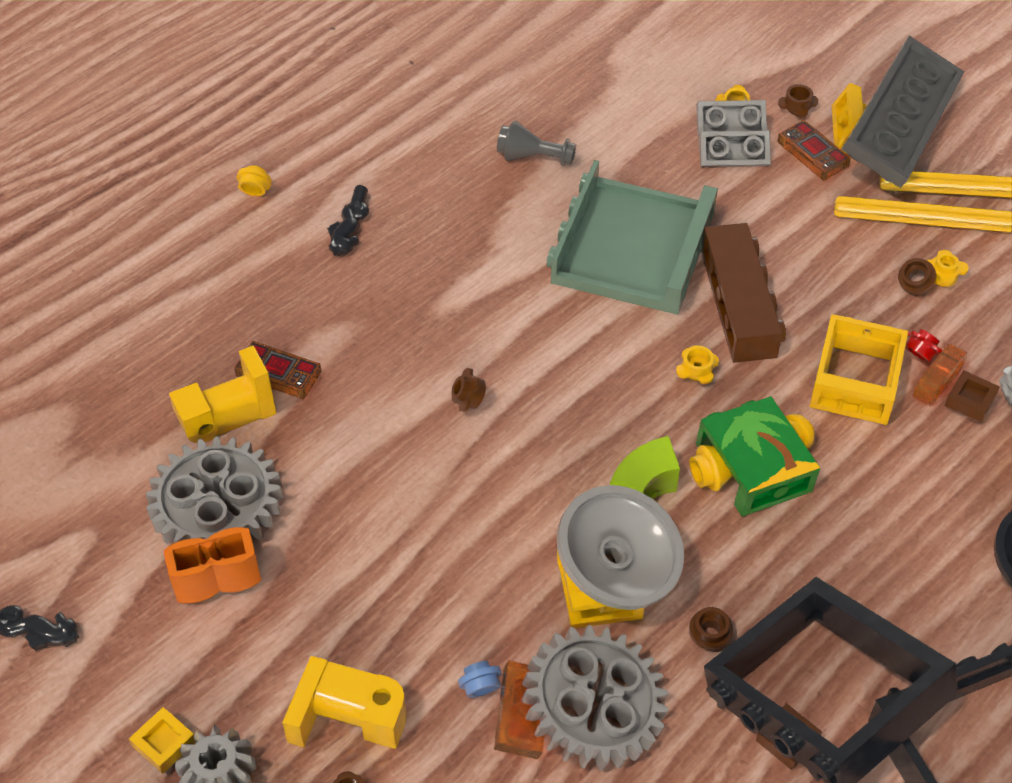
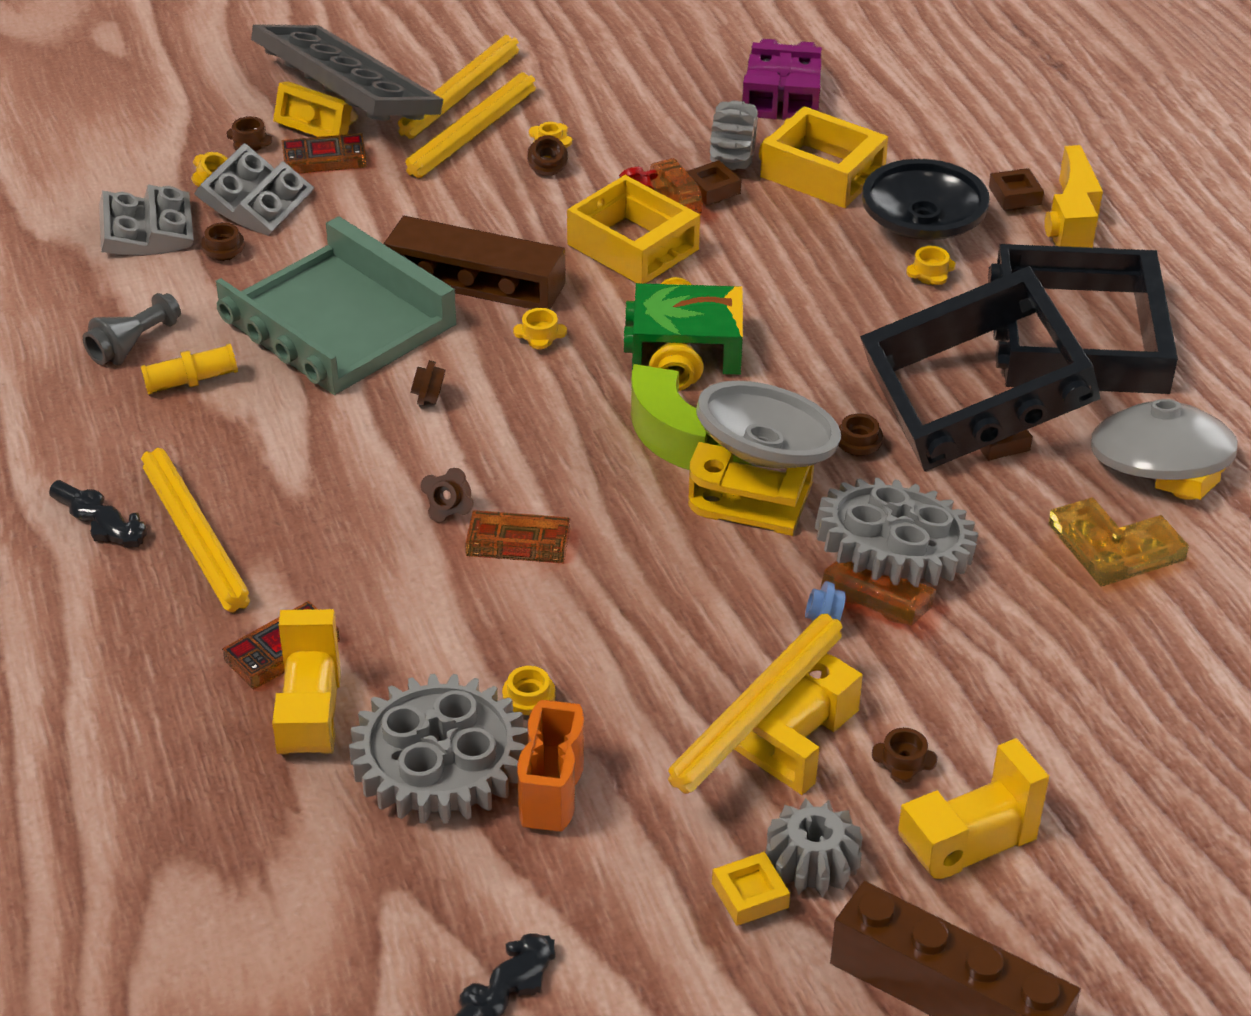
camera: 65 degrees left, 10 degrees down
(298, 516) = (527, 687): none -> yellow plate
(318, 665) = (754, 704): none -> yellow axle
(360, 275) = (196, 530): none -> yellow axle
(459, 452) = (518, 536): none -> clear orange tile
(513, 194) = (189, 369): none -> yellow pin
(583, 326) = (428, 383): none -> reddish brown plate
(656, 97) = (147, 224): none -> light grey slope
(663, 145) = (222, 241): none -> reddish brown plate
(990, 591) = (931, 265): none -> yellow plate

